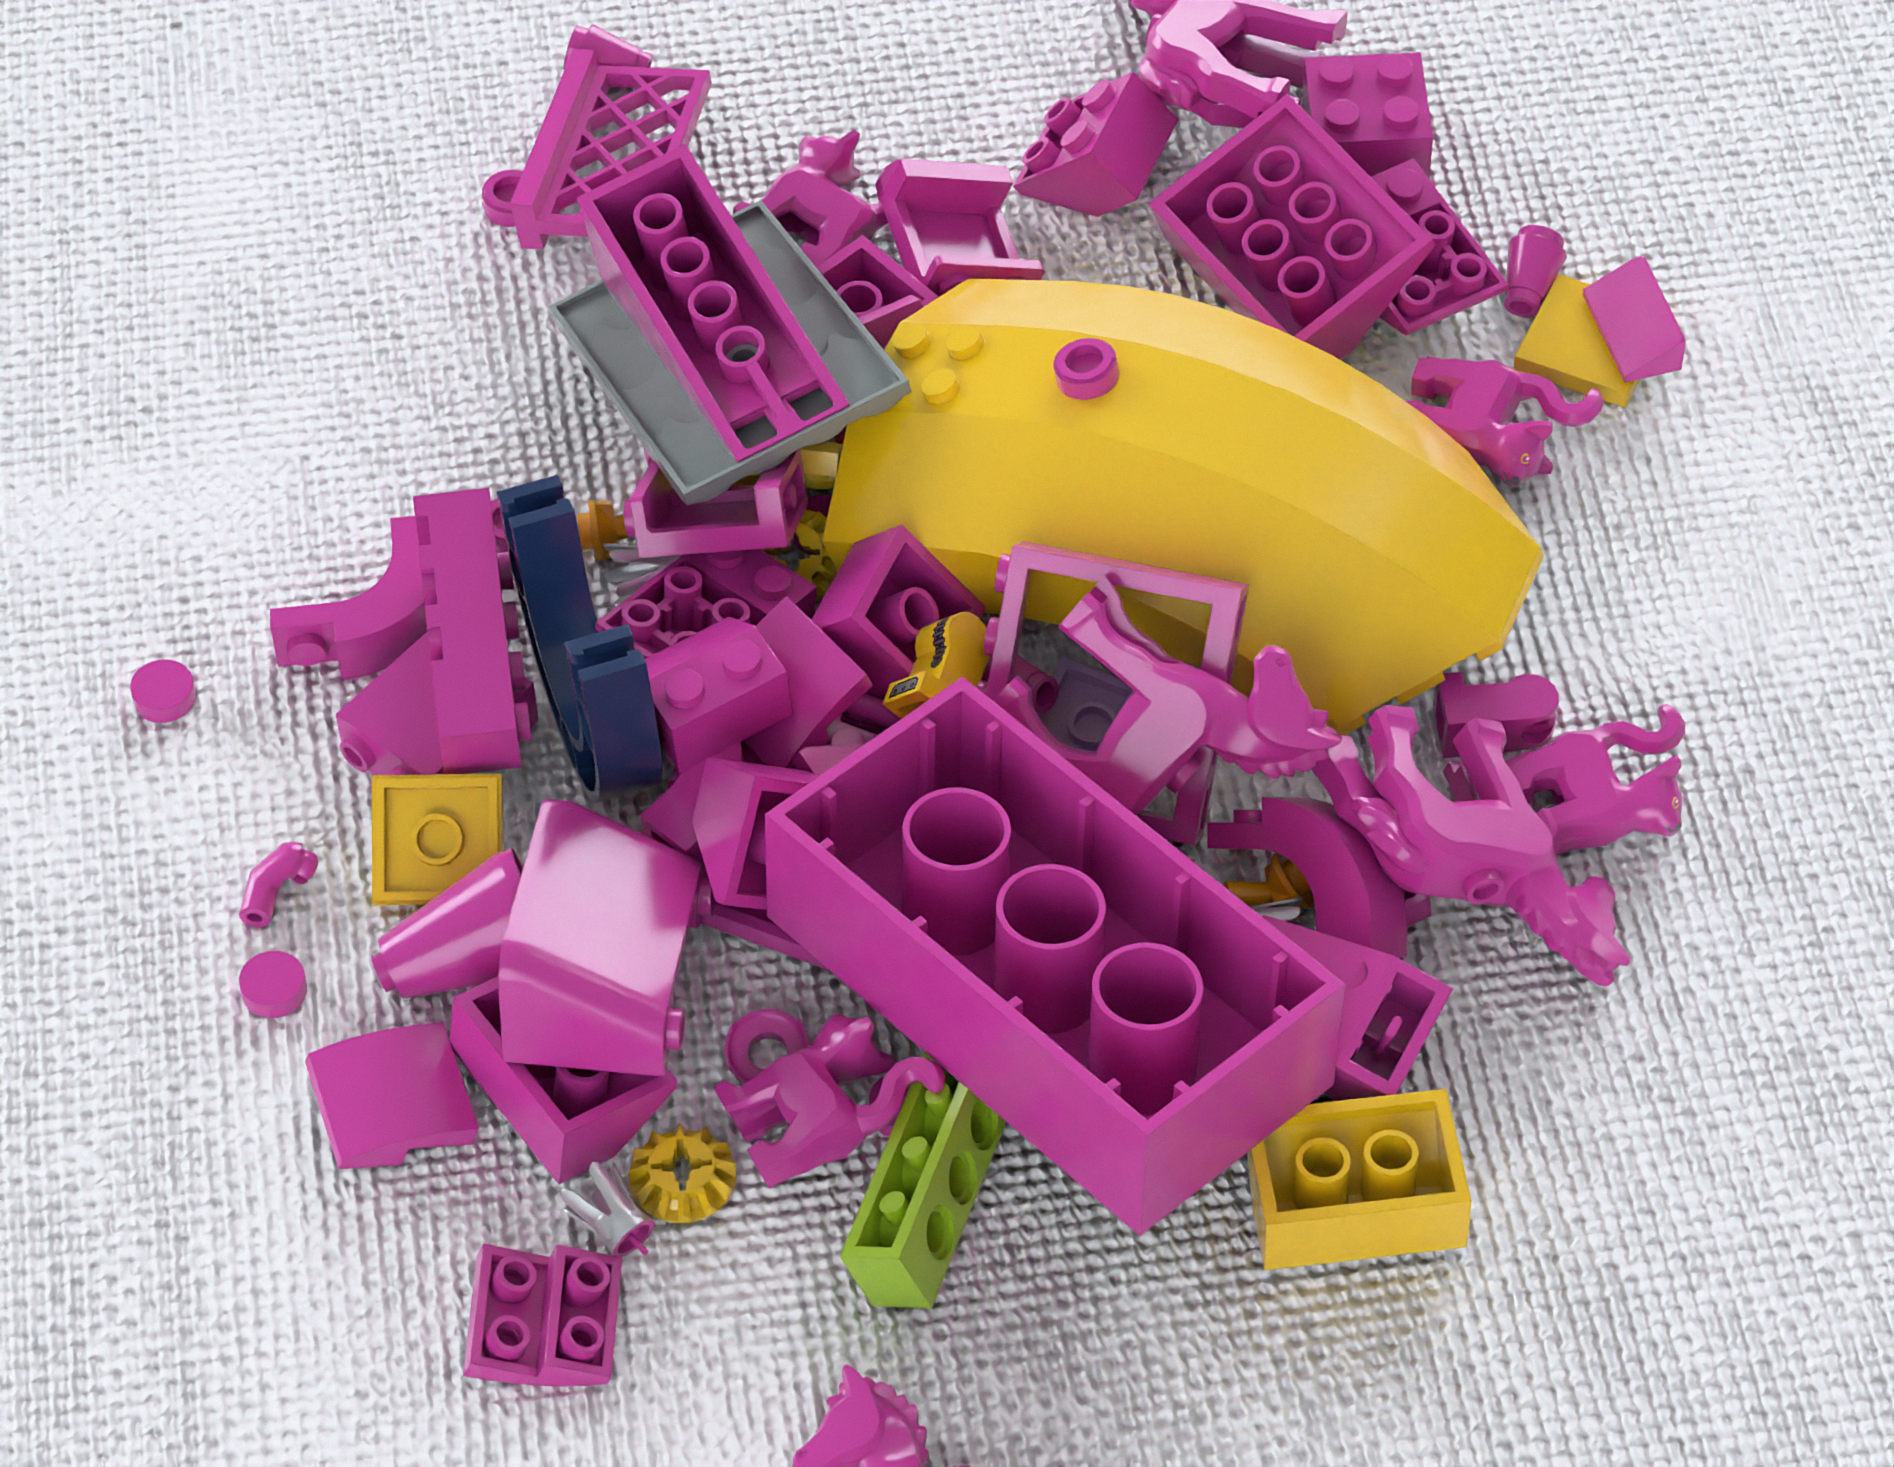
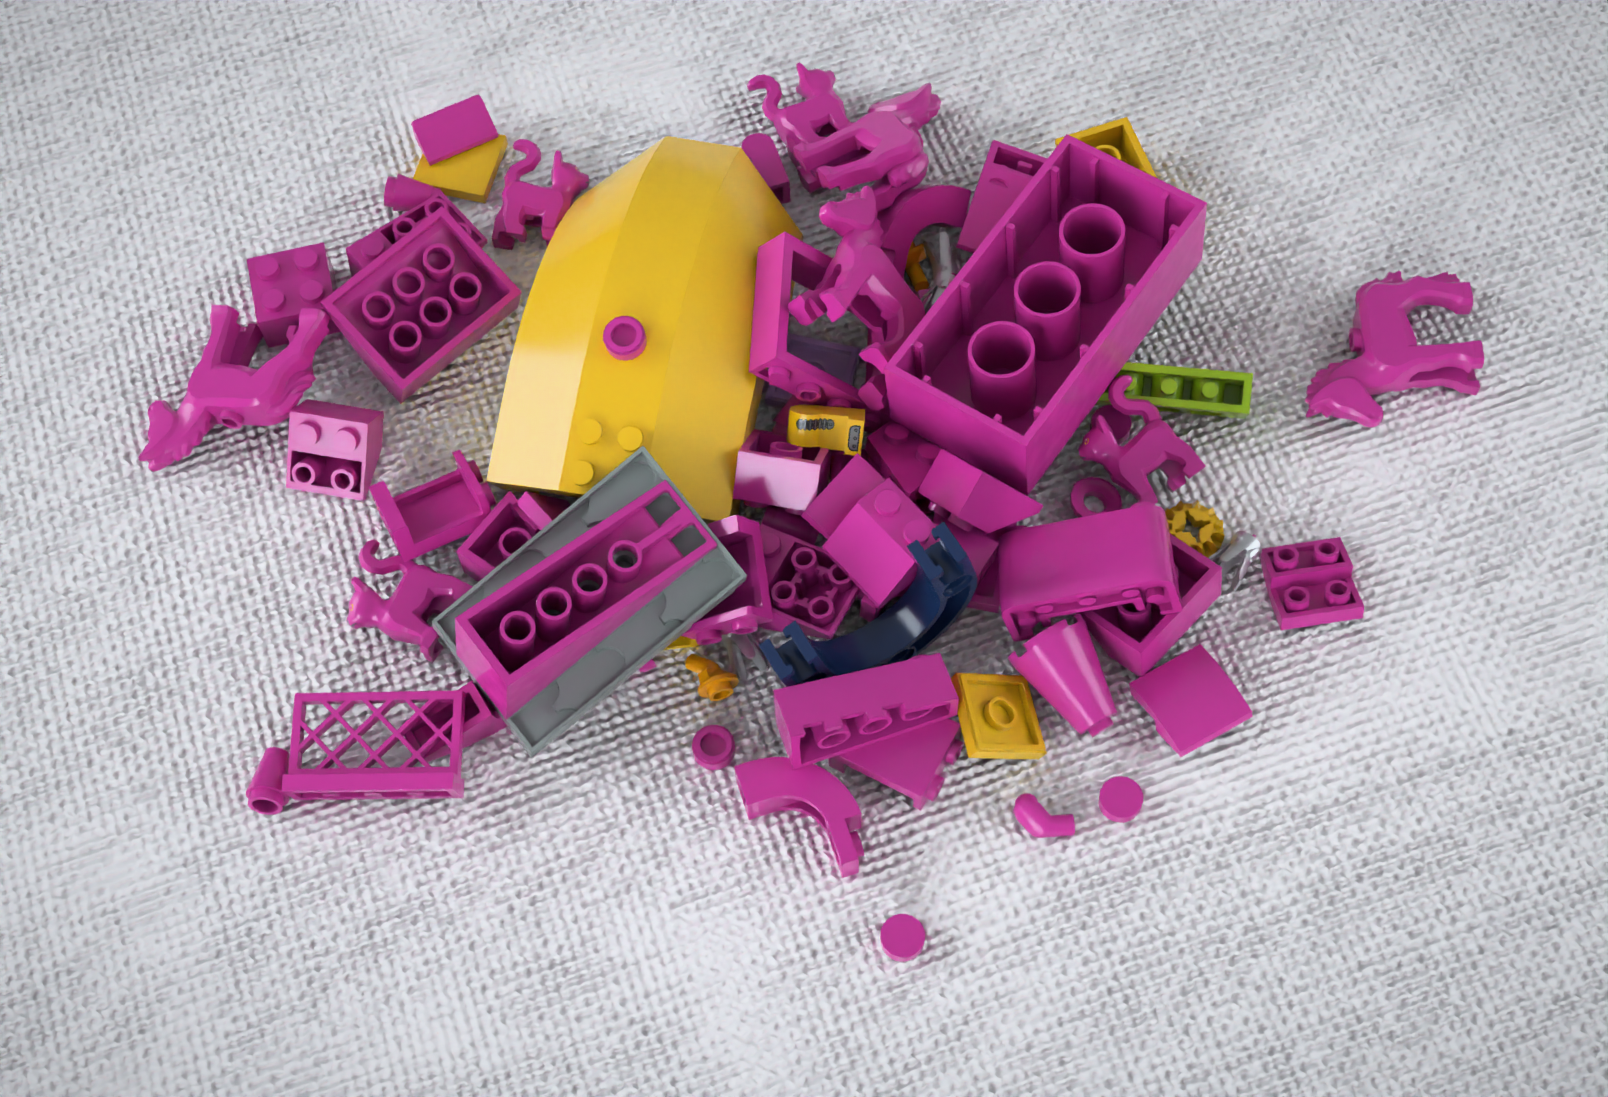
camera: 100 degrees left, 10 degrees up
(497, 195) = (410, 820): dark pink tile -> none

